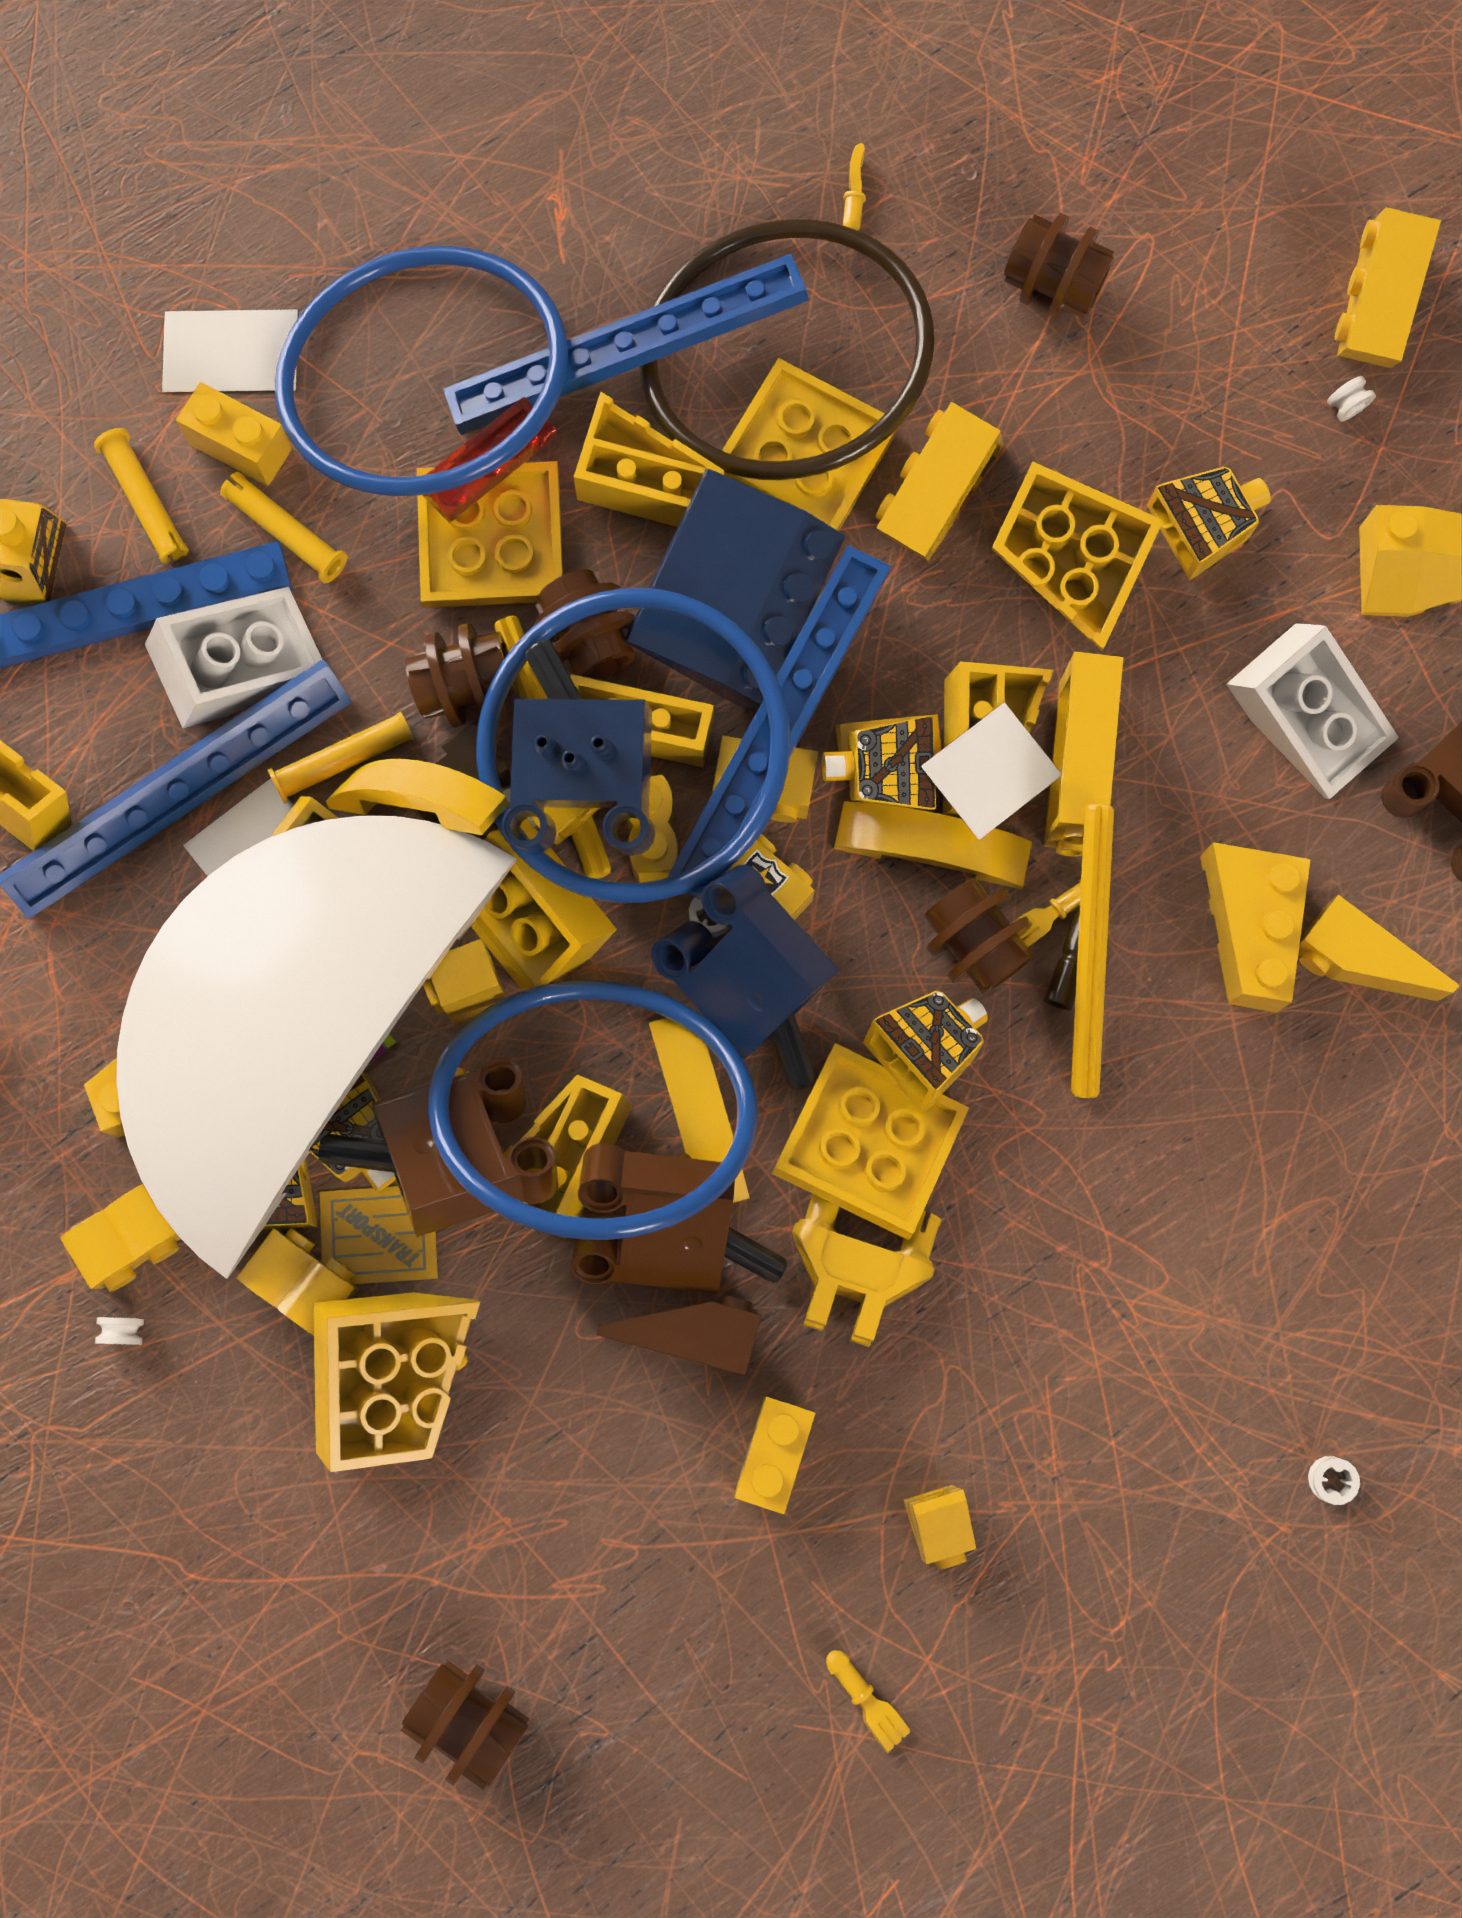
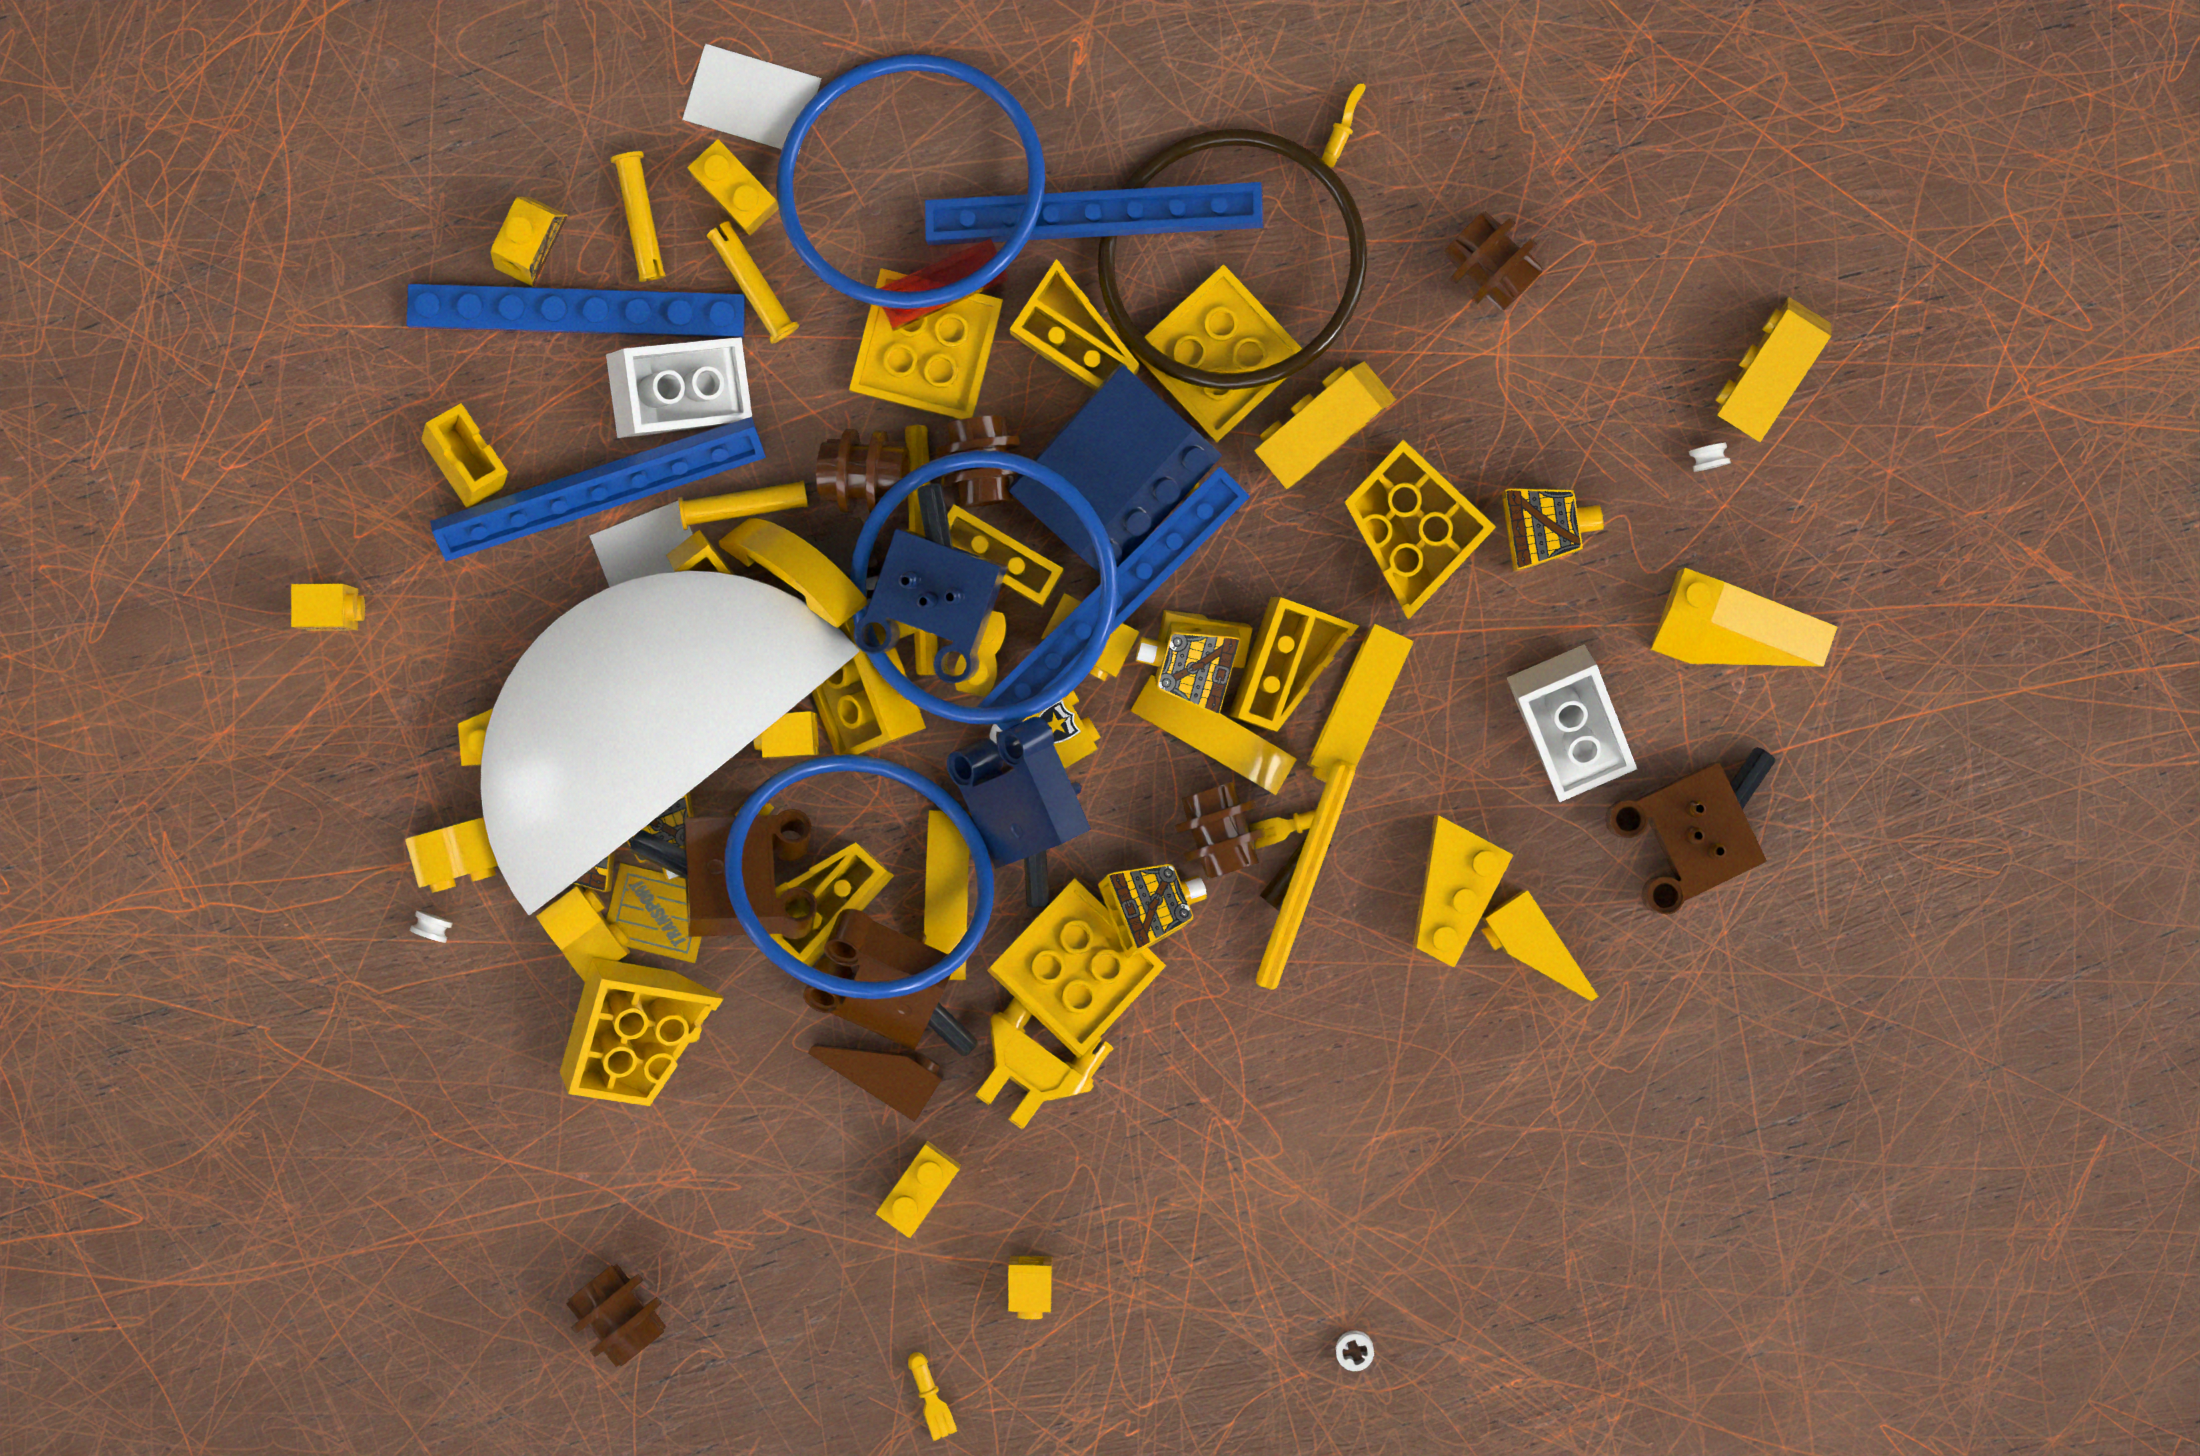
camera: 20 degrees right, 10 degrees up
(991, 770) = (1275, 698): white sticker -> none

